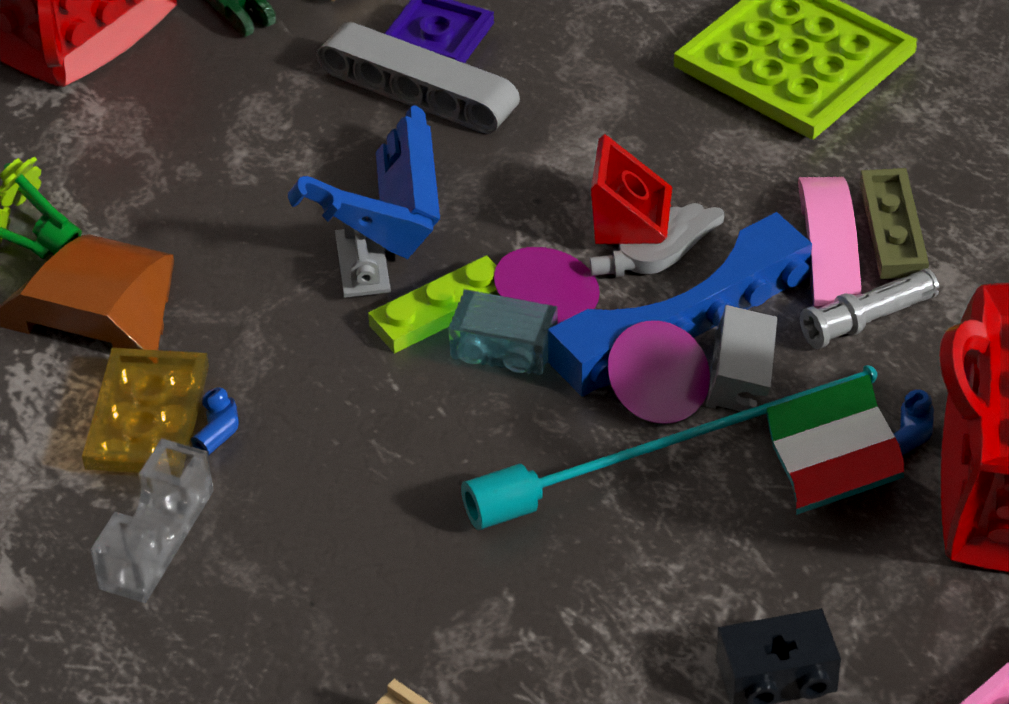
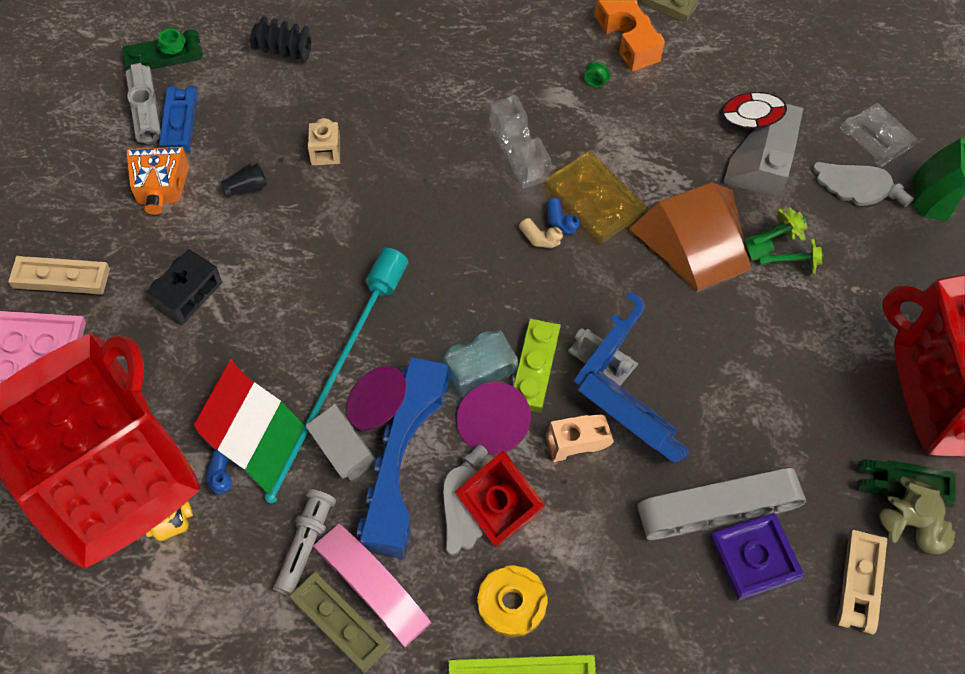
camera: 135 degrees right, 15 degrees up
(266, 417) = (541, 238): none -> tan arm
(485, 205) = (578, 436): none -> light nougat leg
(701, 163) = (512, 621): none -> yellow tile

